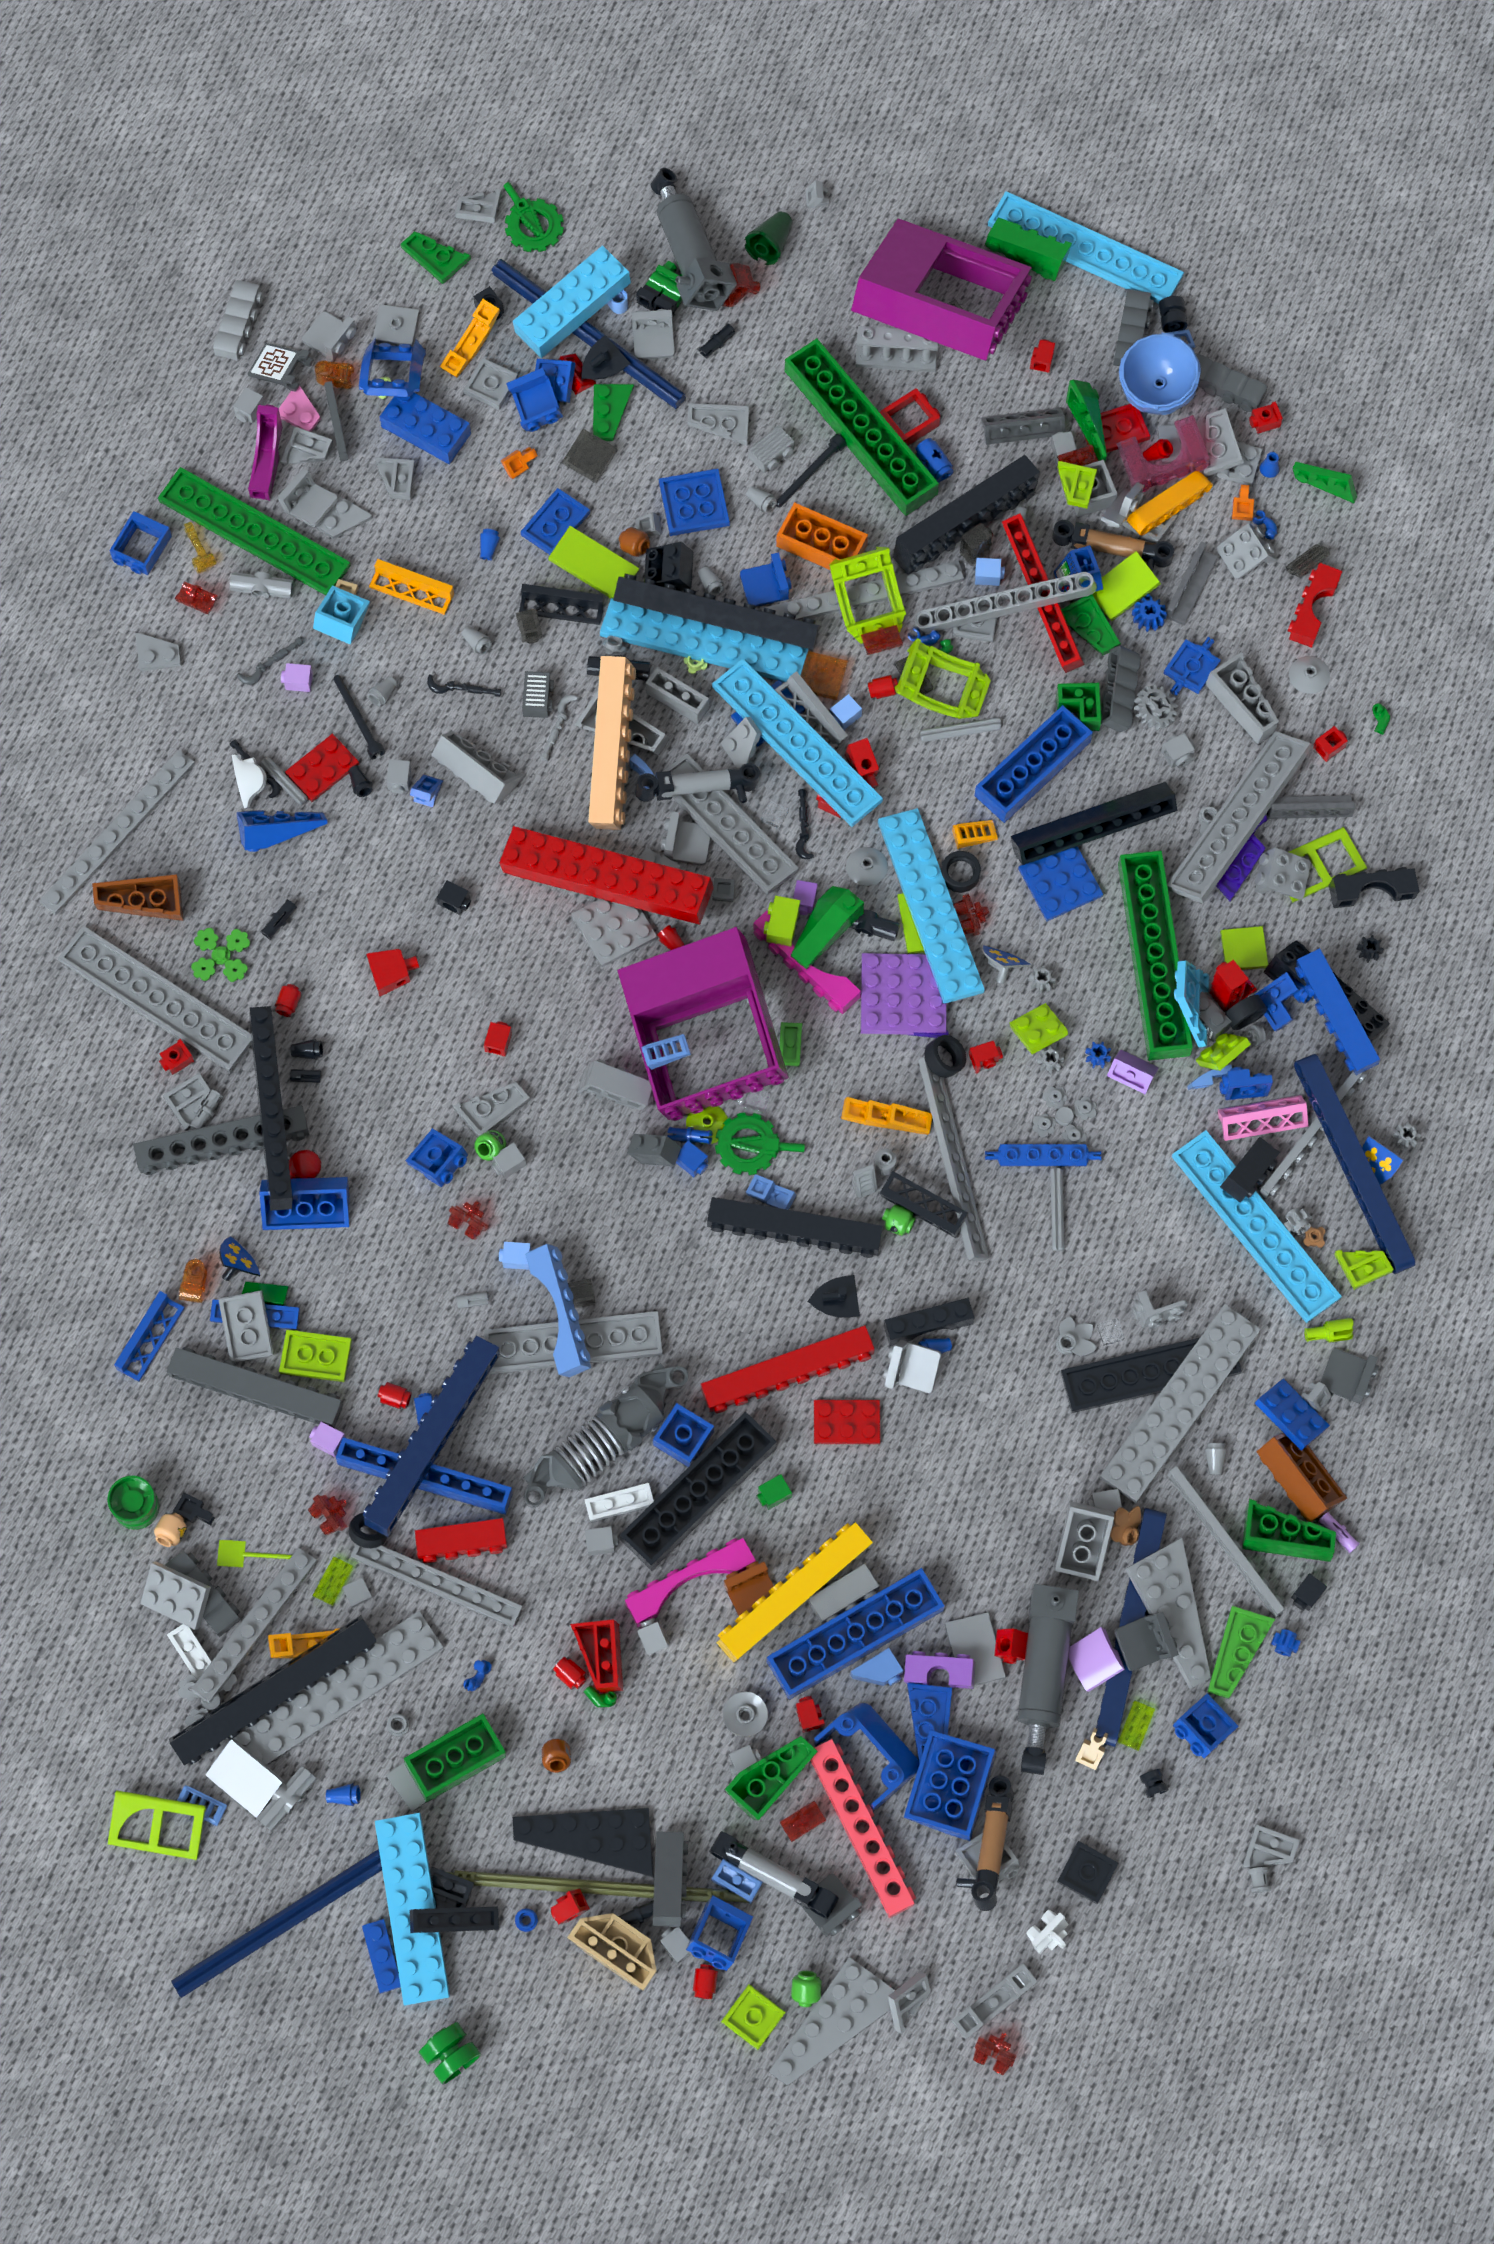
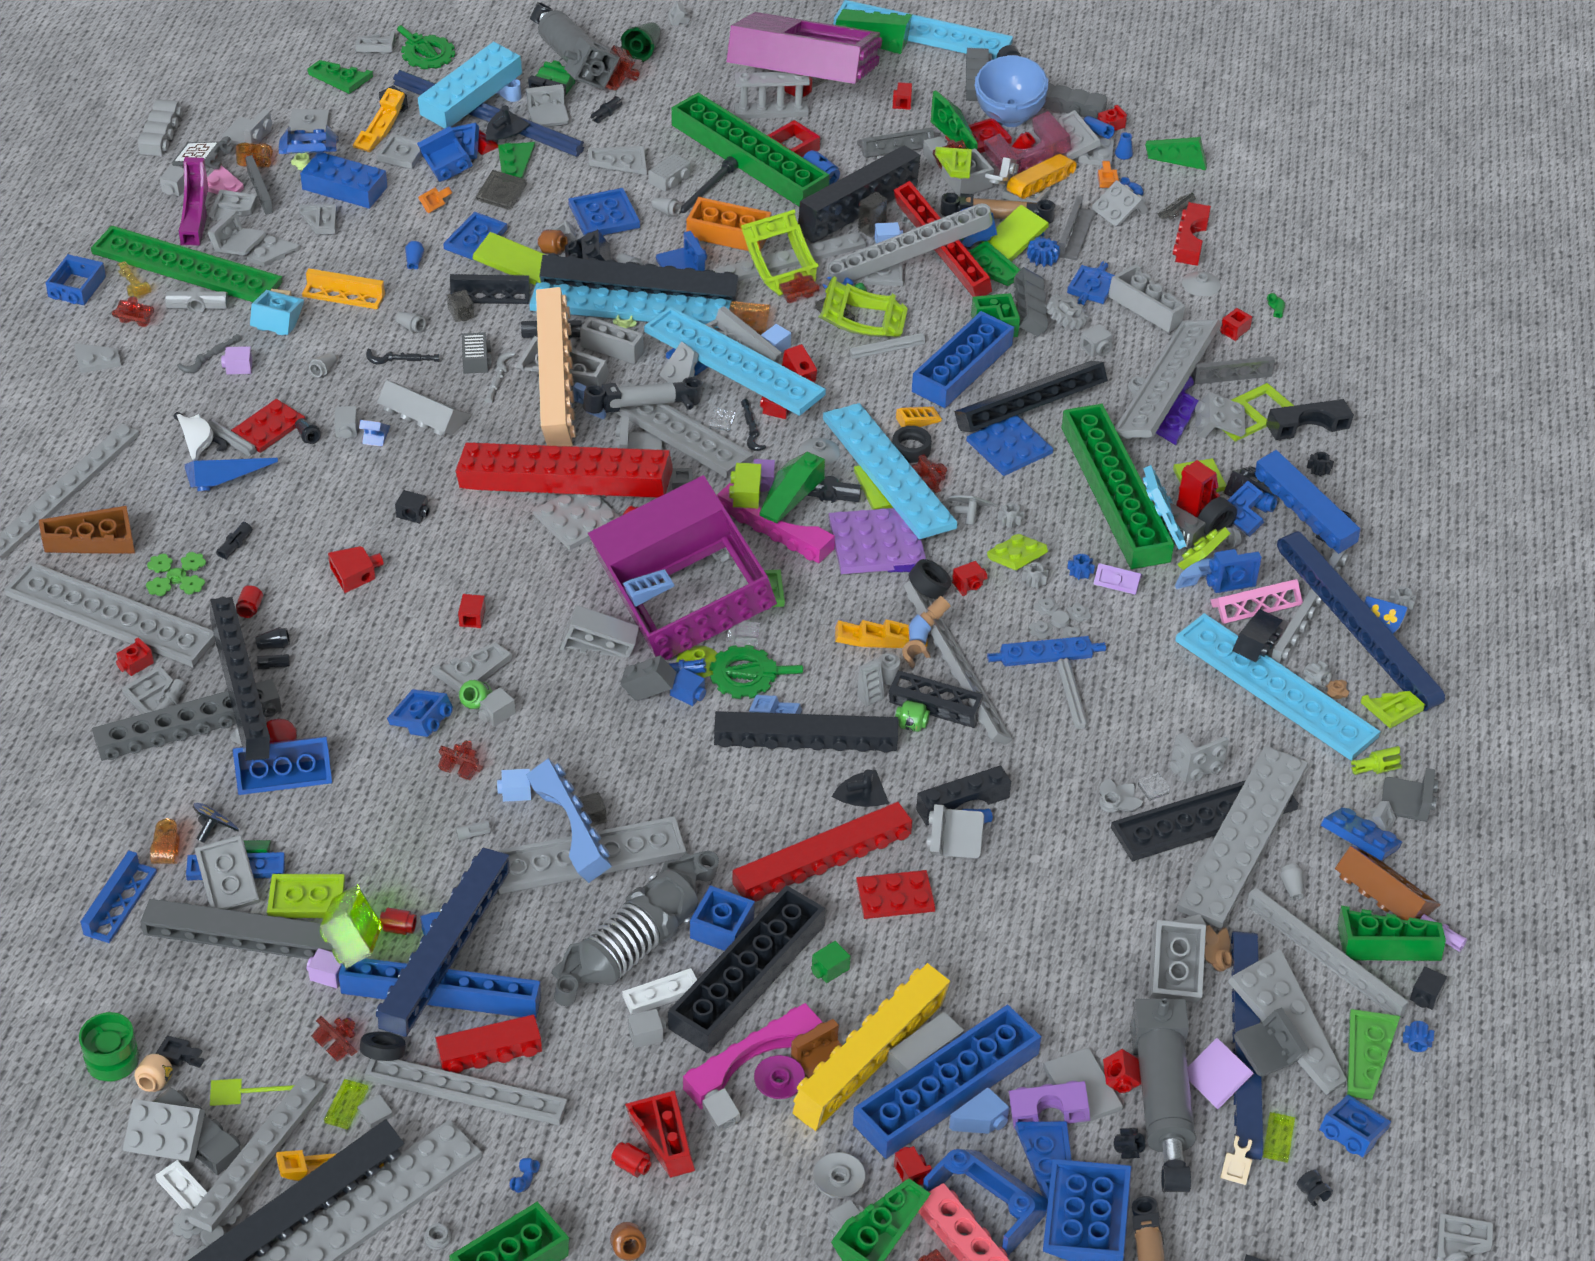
camera: 10 degrees left, 25 degrees down
(350, 1414) = (351, 927): none -> clear neon green brick
(374, 747) = (318, 405): black piece -> none
(600, 1700) = (670, 1184): green arm -> none
(711, 1596) = (777, 1068): none -> magenta dish
(882, 687) = (807, 320): red brick -> none
(921, 1123) = (919, 630): none -> medium nougat piece
(1002, 1717) = (1129, 1143): none -> black gear
(1248, 430) = (1099, 127): none -> blue piece

